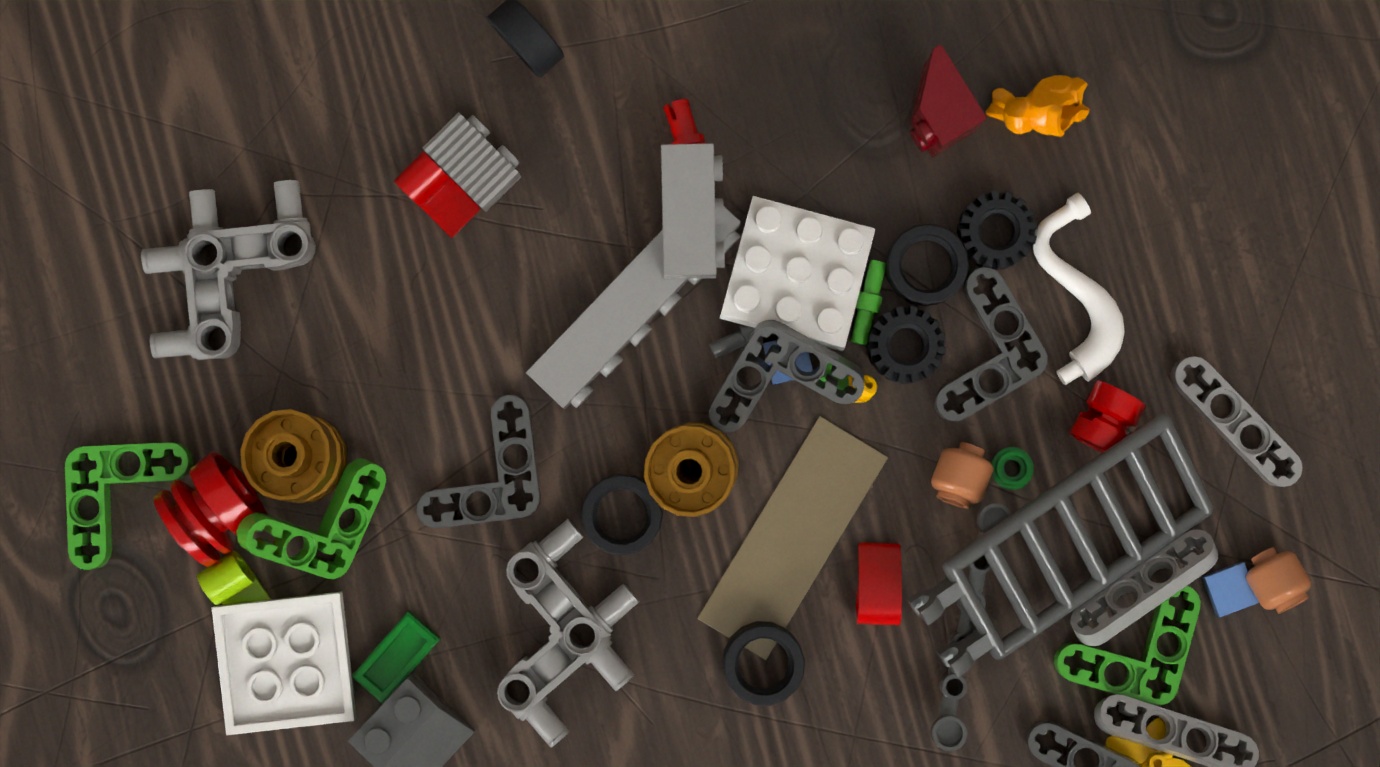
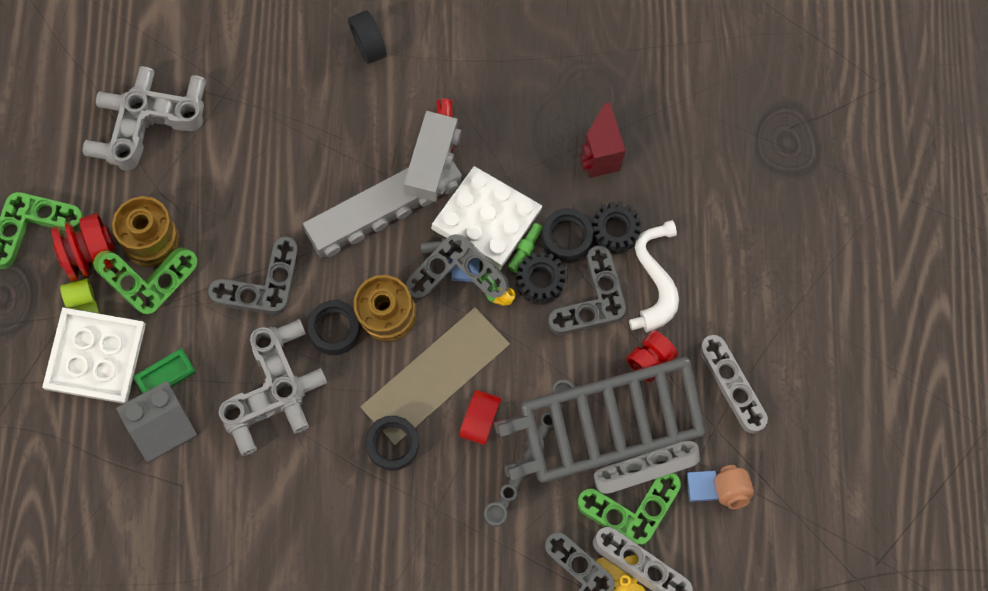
camera: 10 degrees right, 15 degrees down
(437, 194) = (285, 111): red panel -> none
(473, 161) = (313, 99): light grey brick -> none
(962, 475) = (551, 364): nougat head -> none
(1024, 463) = (584, 363): green plate -> none
(1046, 109) = (665, 164): light orange animal -> none

